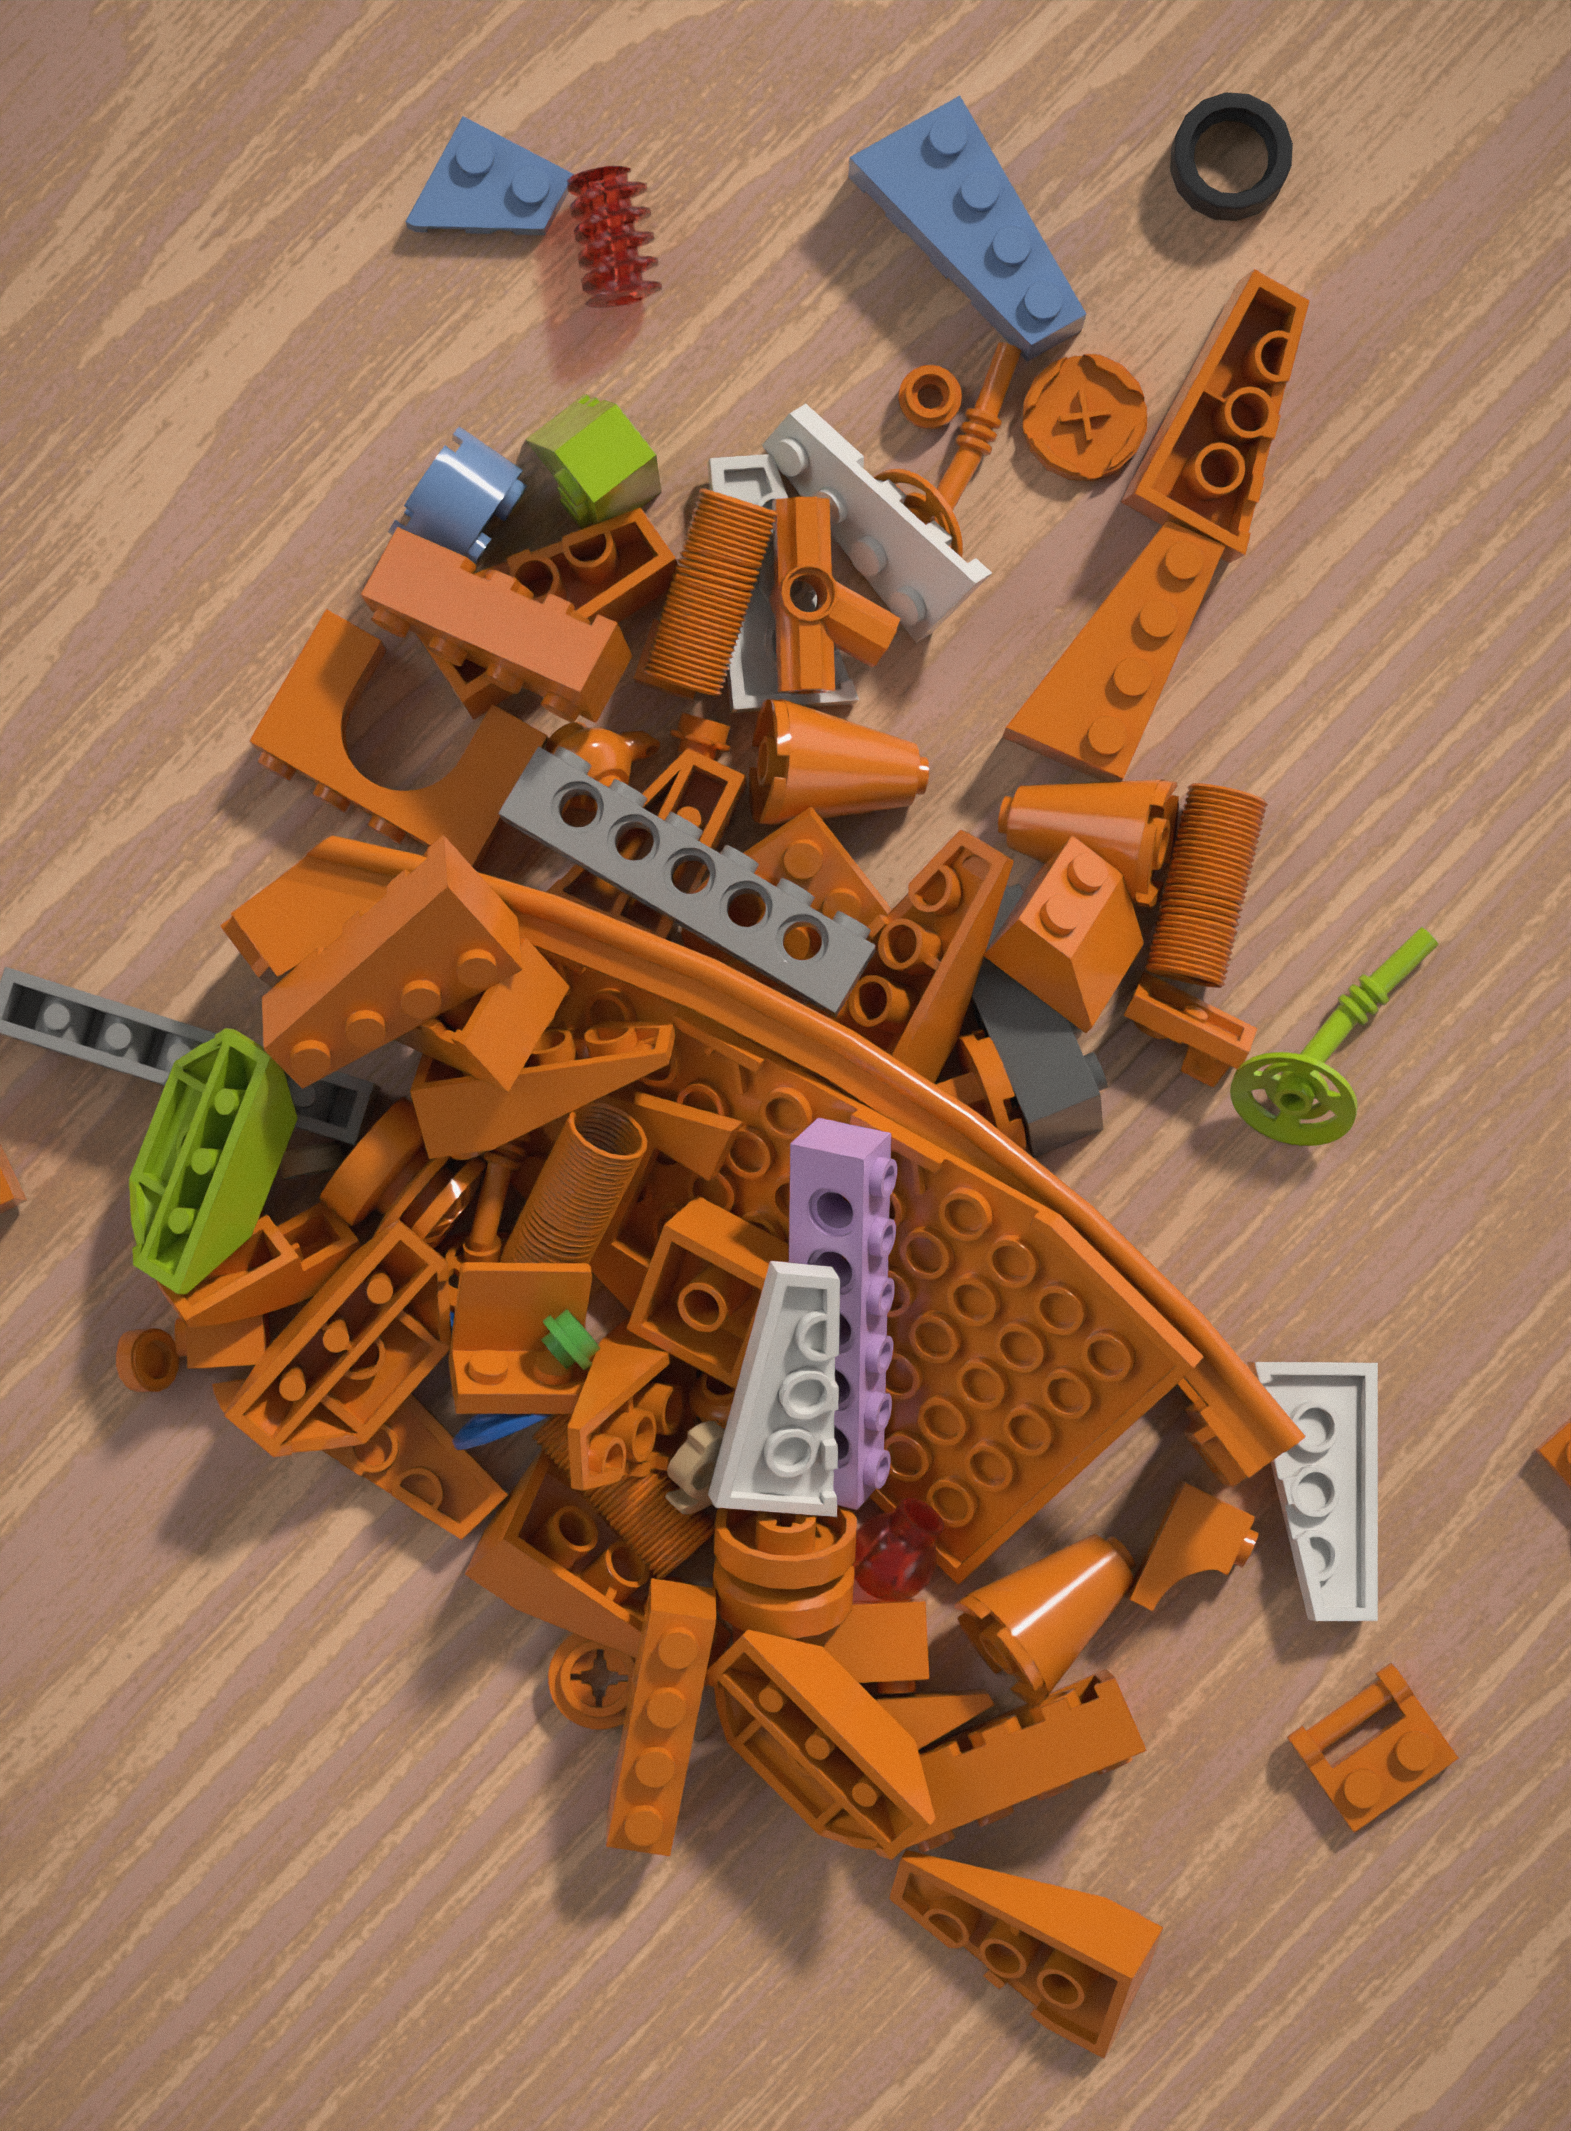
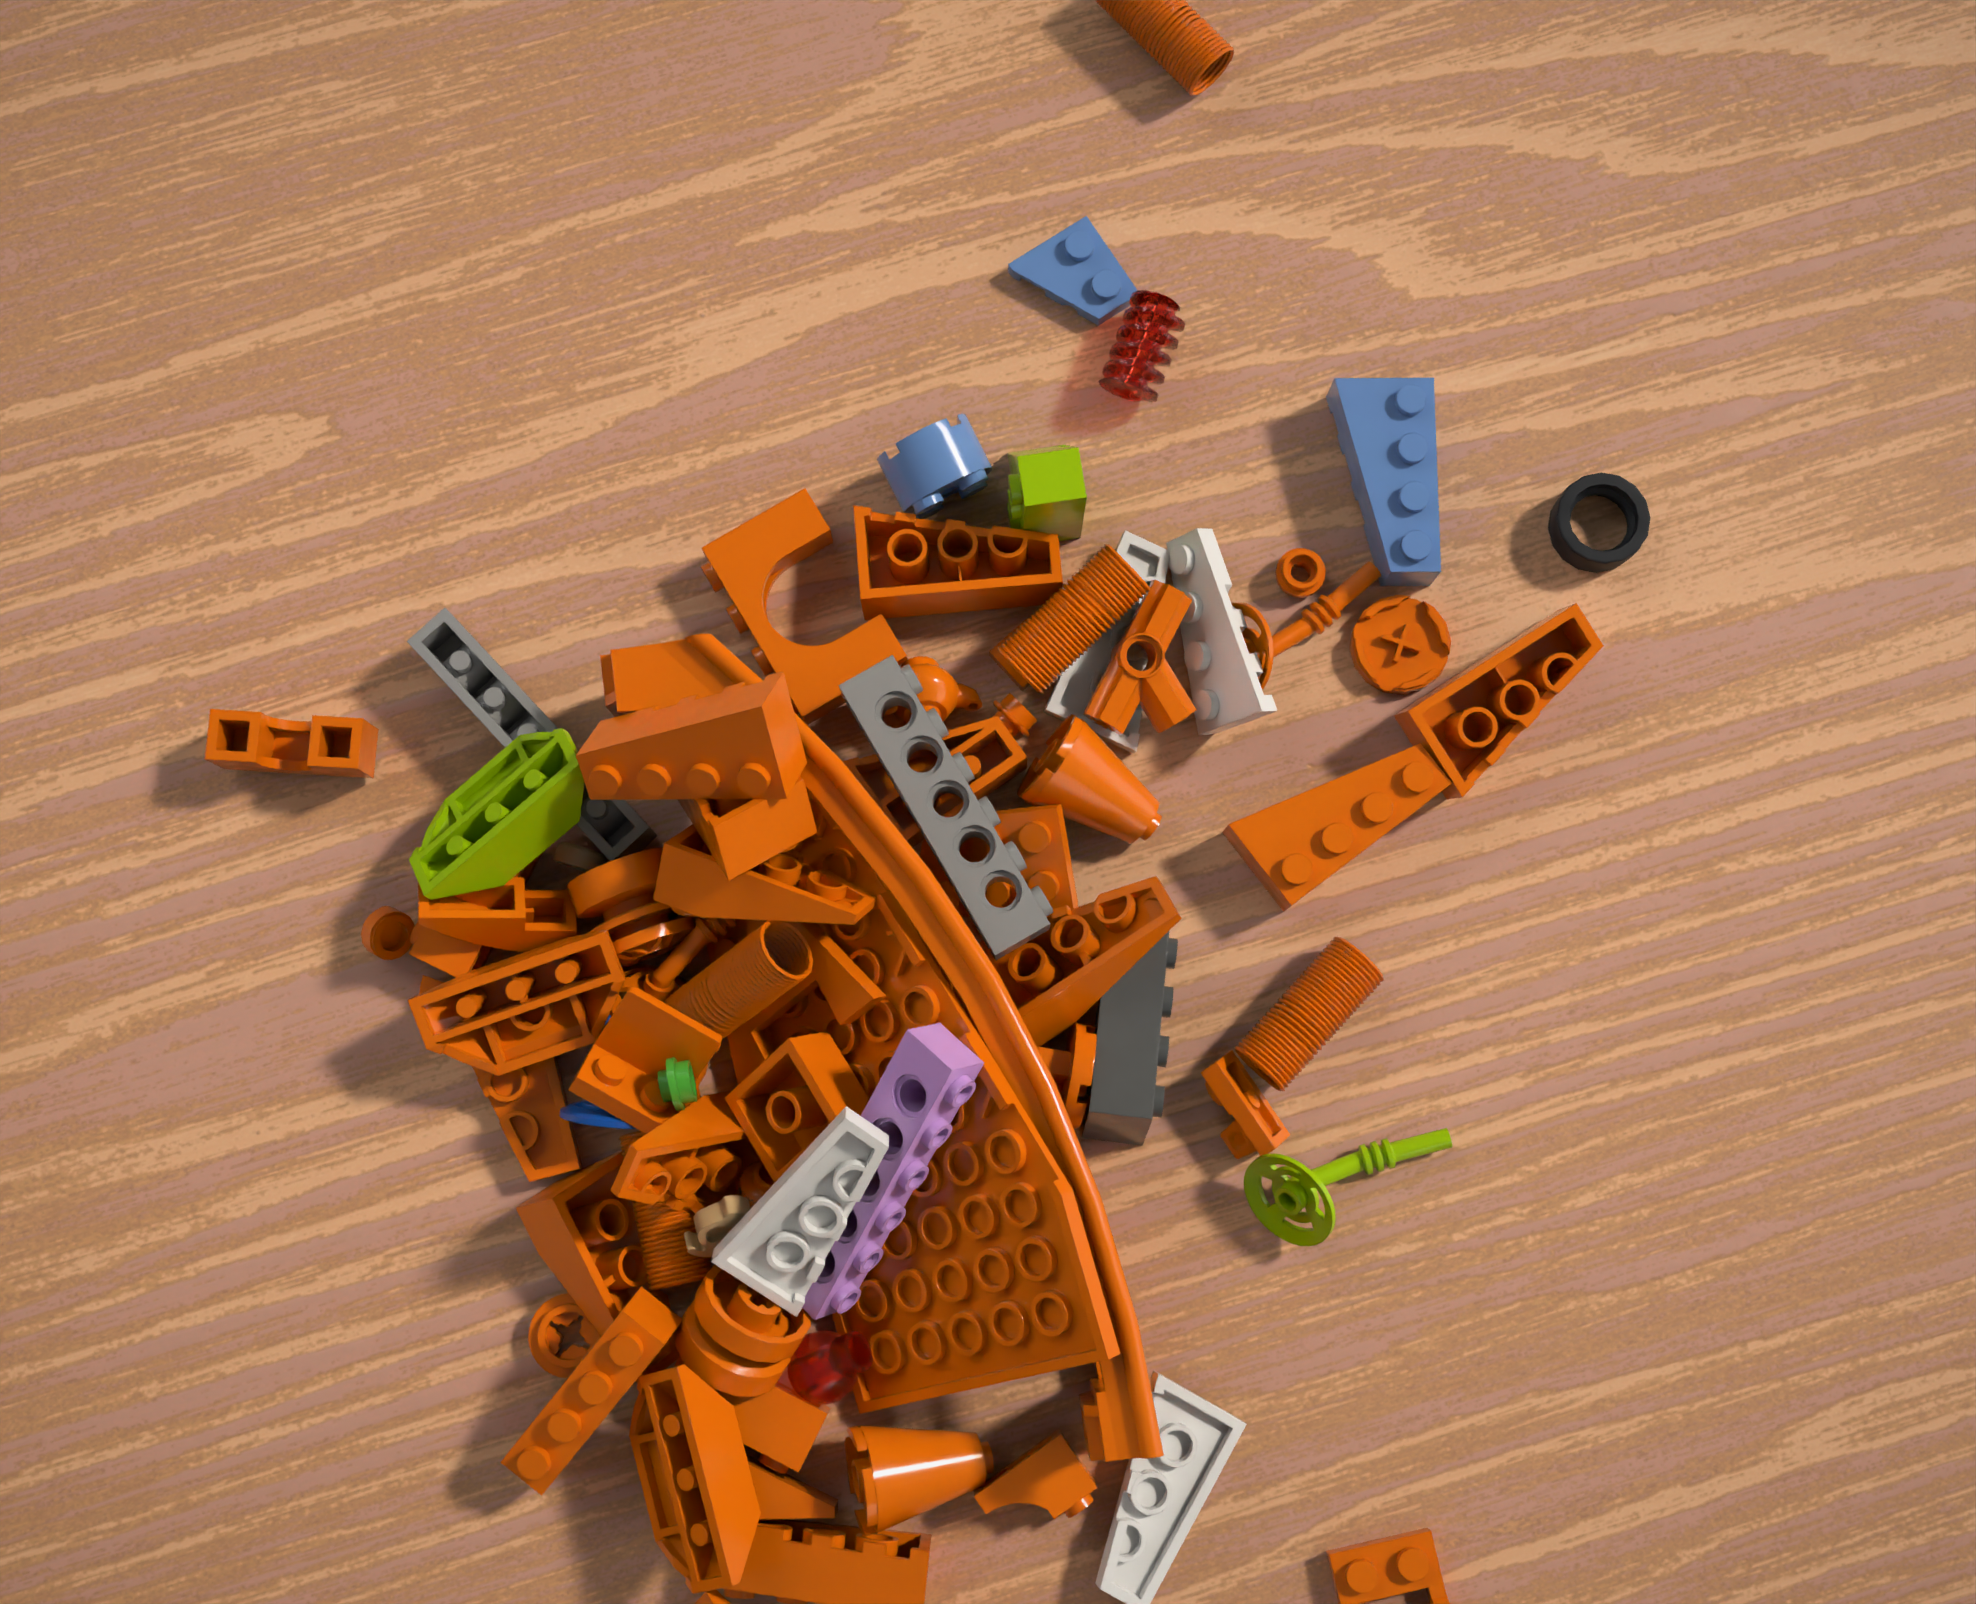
camera: 30 degrees right, 5 degrees down
(497, 626) = (913, 559): orange wedge -> none
(1071, 934) = (1194, 994): orange slope -> none
(1118, 820) = (1253, 933): orange cone -> none

